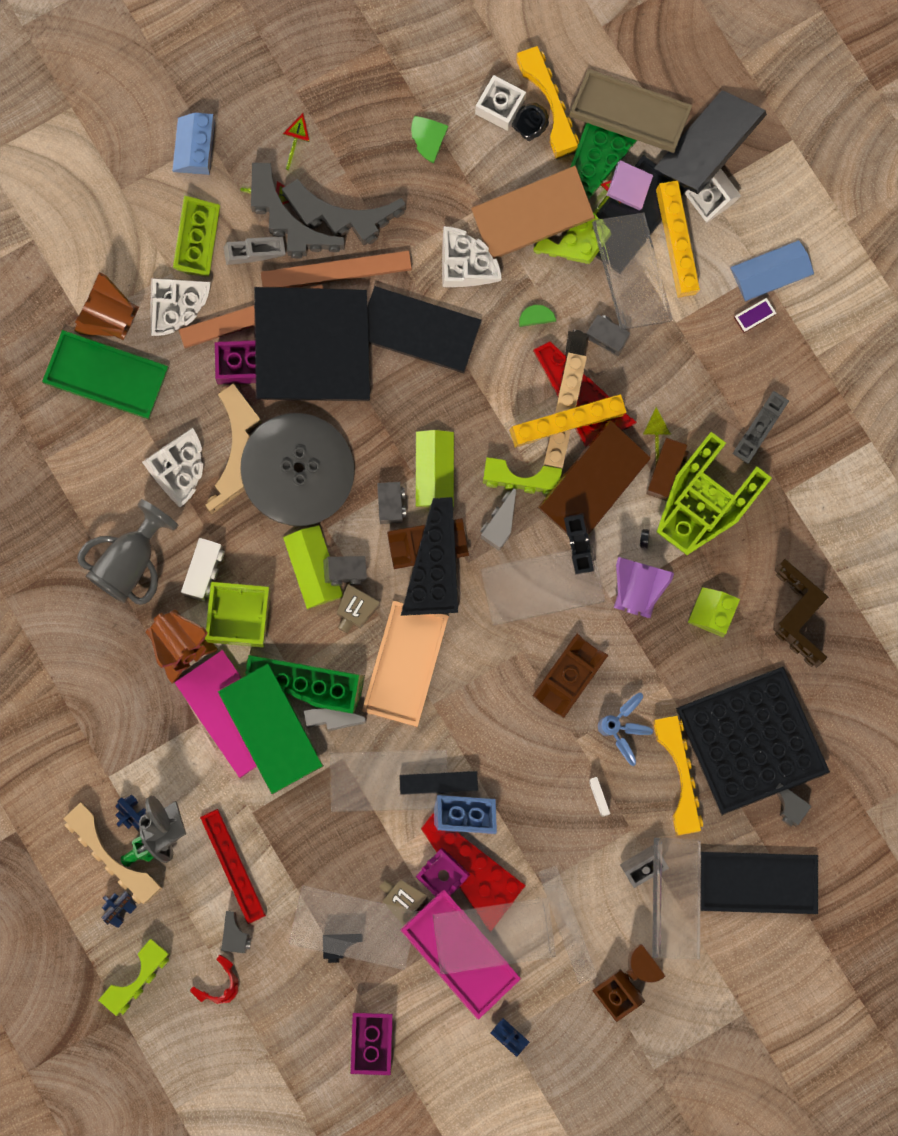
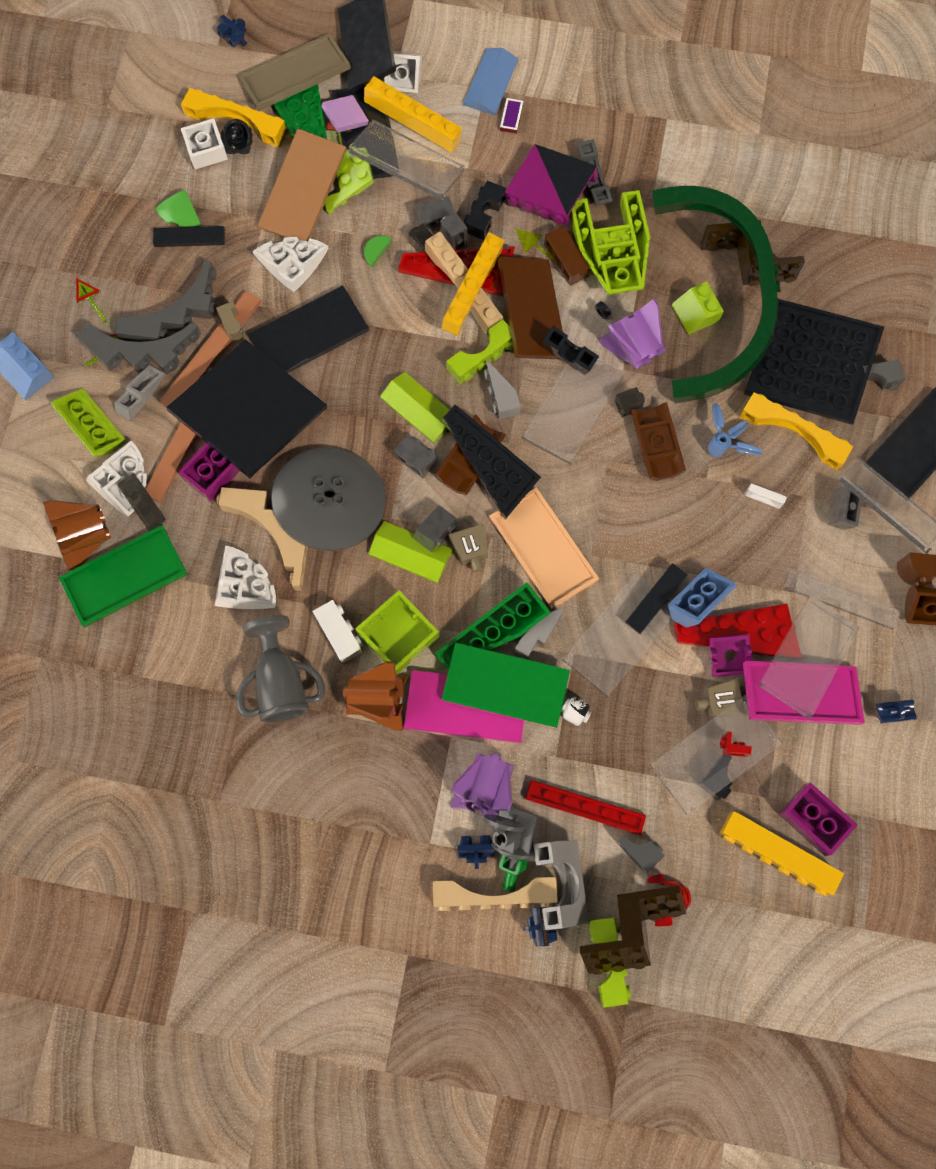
camera: 45 degrees left, 5 degrees down
(150, 918) = (572, 905): none -> light grey arch
(169, 335) = (141, 502): none -> clear smoke slope
(169, 974) = (634, 946): none -> dark brown bracket
(180, 779) = (484, 786): none -> medium lavender brick
(297, 797) = (576, 711): none -> white head
(323, 1038) = (782, 854): none -> yellow brick
(369, 939) = (736, 749): none -> red bracket
(370, 263) = (230, 324): none -> dark tan leg
(414, 164) = (189, 236): none -> black tile
(584, 626) = (629, 400): none -> clear smoke brick
(601, 365) = (454, 231): none -> flat silver brick
(620, 36) = (234, 28): none -> dark blue hips
(662, 363) = (490, 197): none -> black arch
(715, 401) = (549, 184): none -> panel
(771, 650) = (724, 205): none -> dark green arch

